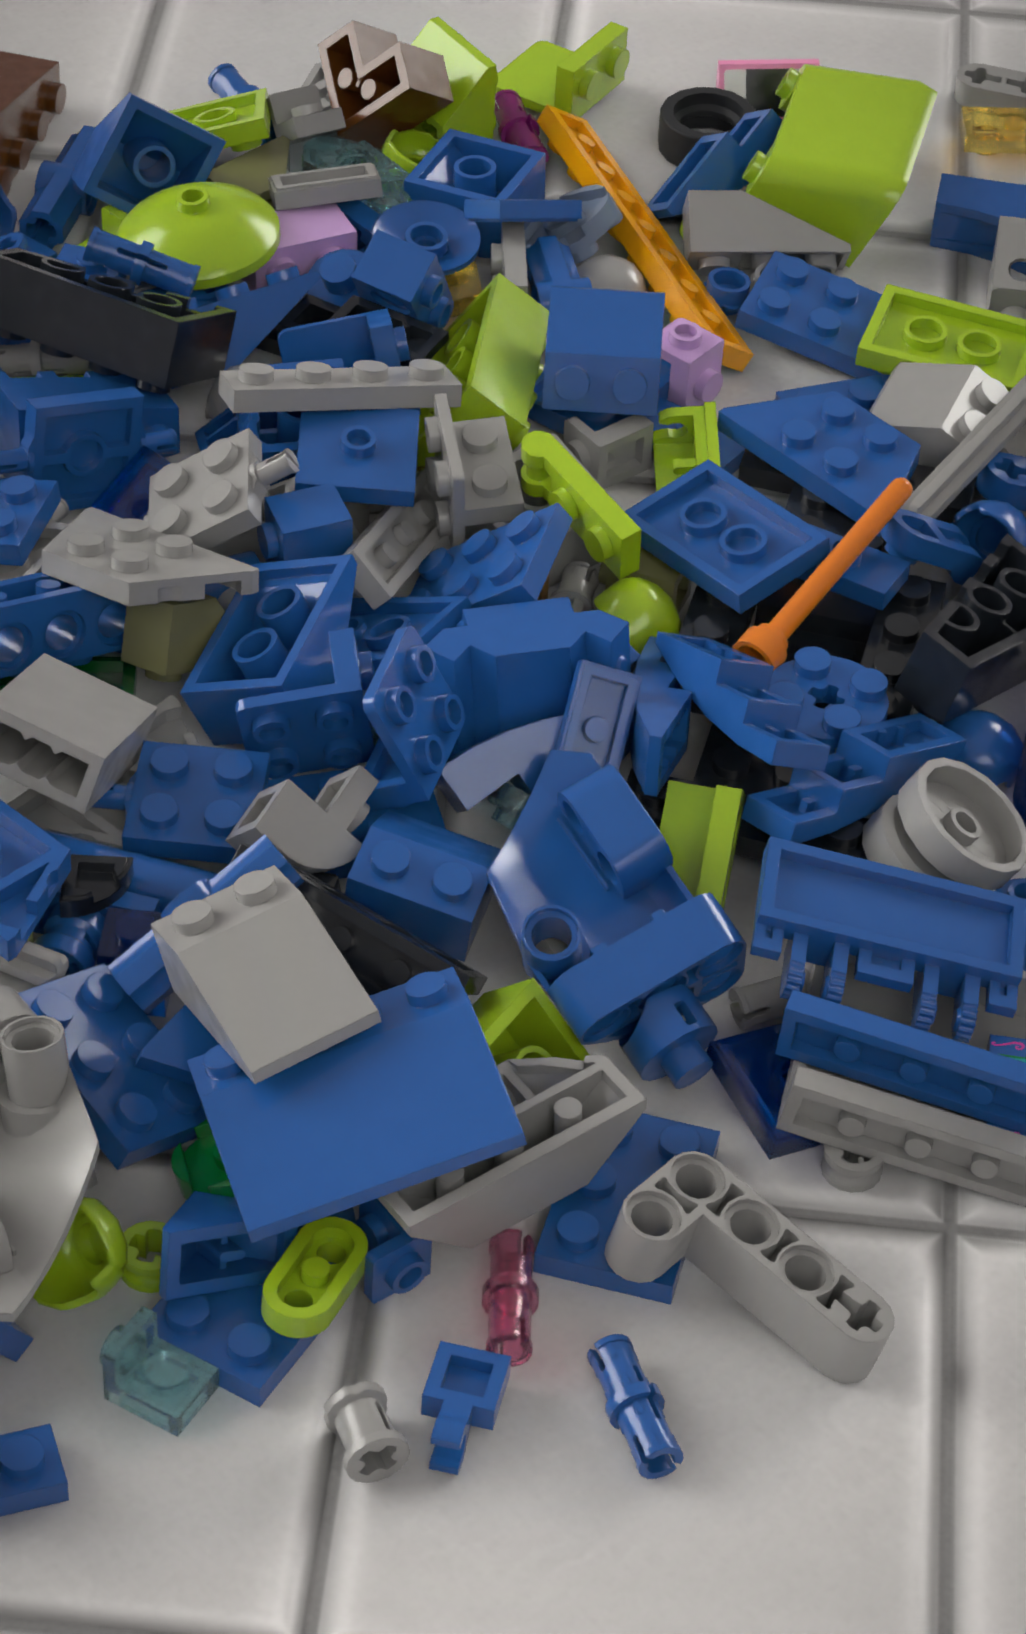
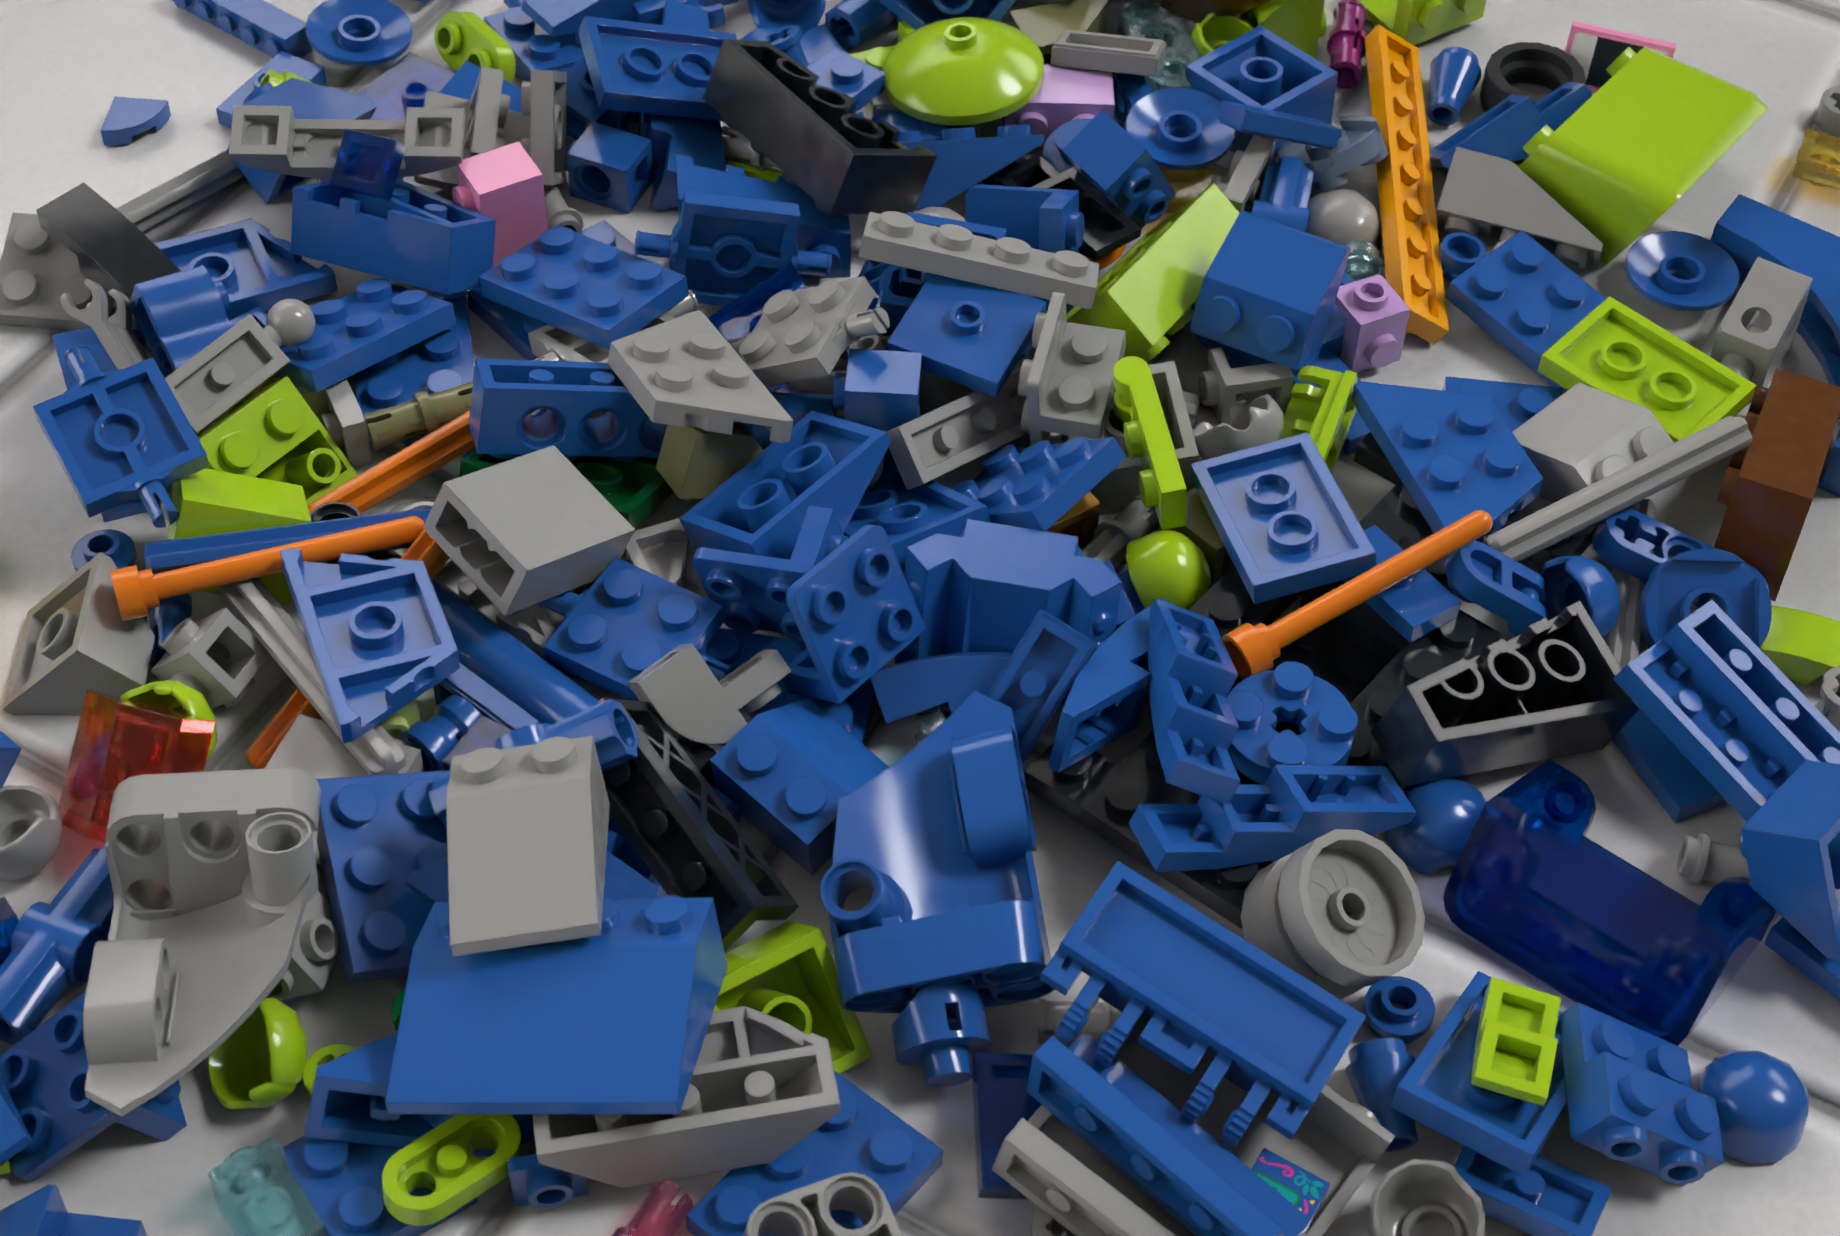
camera: 25 degrees right, 5 degrees up
(94, 884) = (483, 686): black tile -> none
(141, 262) = (855, 63): blue pin -> none
(634, 143) = (1452, 82): none -> blue cone
(637, 476) = (1248, 427): none -> light grey hair
(702, 835) = (1083, 838): lime panel -> none
(923, 252) = (1682, 271): none -> blue dish

